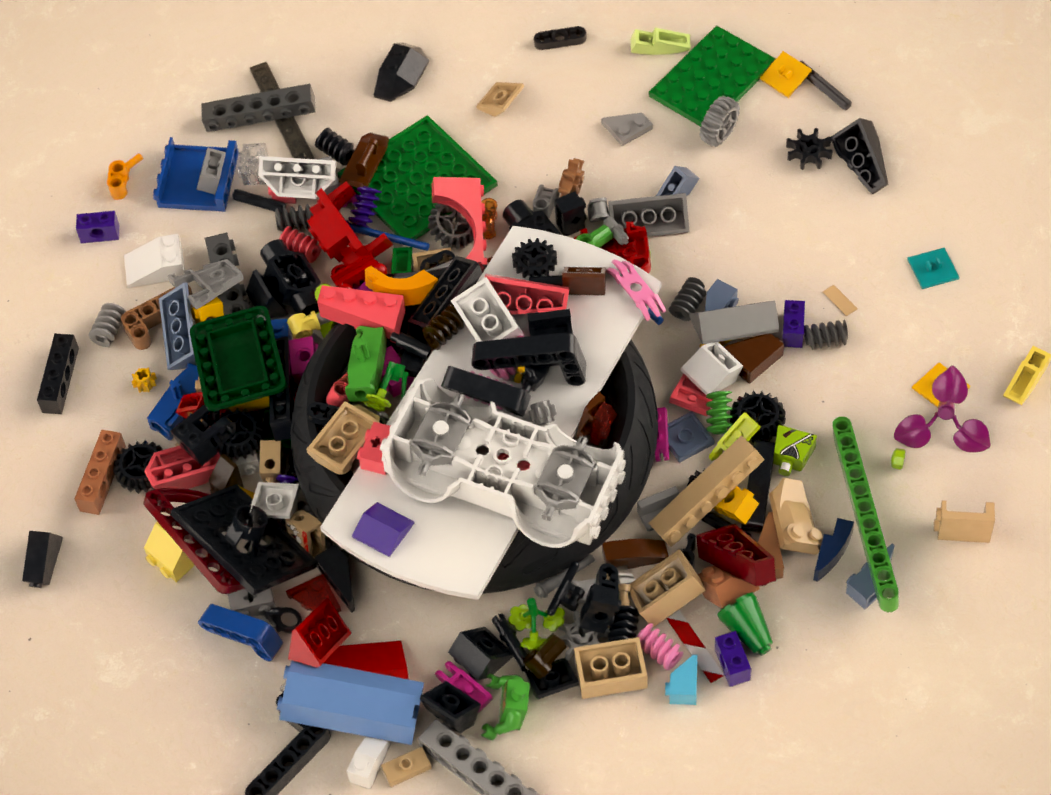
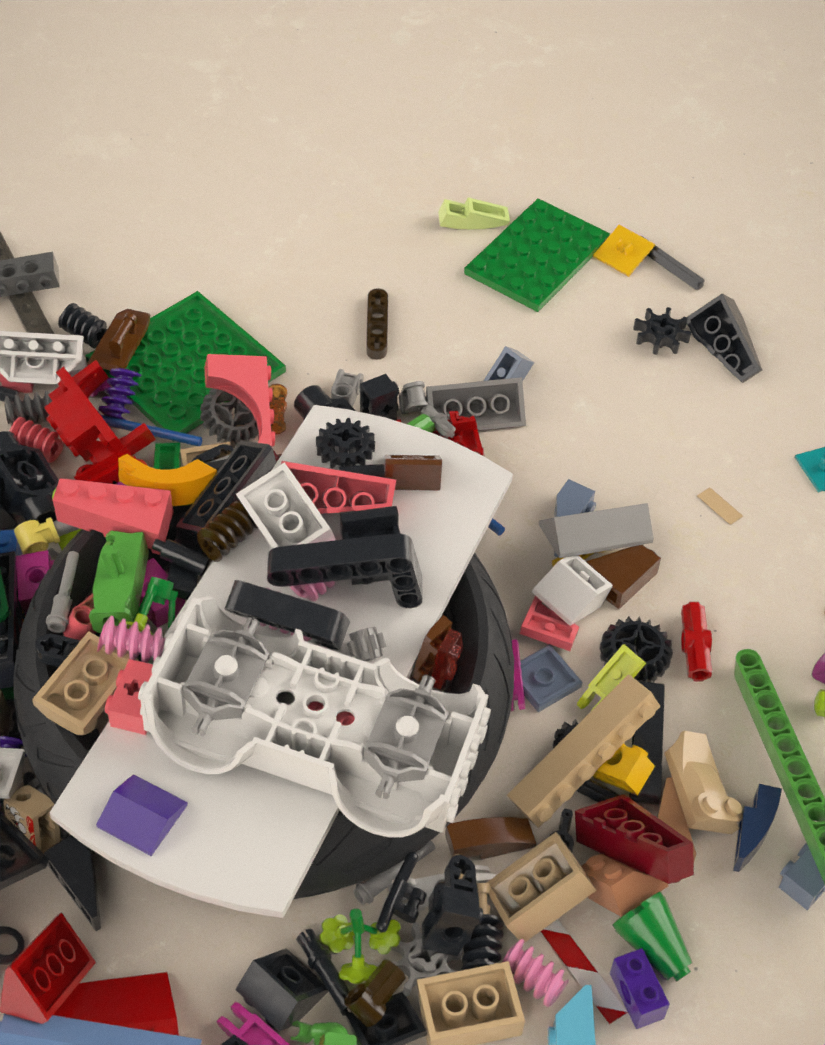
camera: 10 degrees left, 5 degrees down
(312, 593) = (41, 904): clear red wing -> none
(322, 391) = (58, 619): none -> light grey pin
(375, 407) = (131, 640): none -> bright pink piece
(400, 71) = (163, 244): black wedge -> none
(499, 97) = (285, 273): tan slope -> none
(533, 377) = (351, 596): black piece -> none
(565, 32) = (375, 209): black beam -> none
(572, 177) = (379, 359): medium nougat gear -> none
(573, 142) = (377, 323): none -> dark brown beam
(627, 127) = (441, 306): light grey wing -> none
(642, 297) = (490, 492): bright pink piece -> none
(652, 505) = (510, 771): light grey panel -> none
(688, 299) = (533, 504): dark grey piece -> none
(718, 412) = (587, 645): bright green piece -> none
(719, 121) = (553, 298): light grey gear -> none
(792, 449) = (686, 692): lime torso -> none
(793, 323) = (669, 533): dark purple brick -> none
(805, 406) = (696, 641): none -> red piece
(826, 334) = (710, 545): dark grey piece -> none

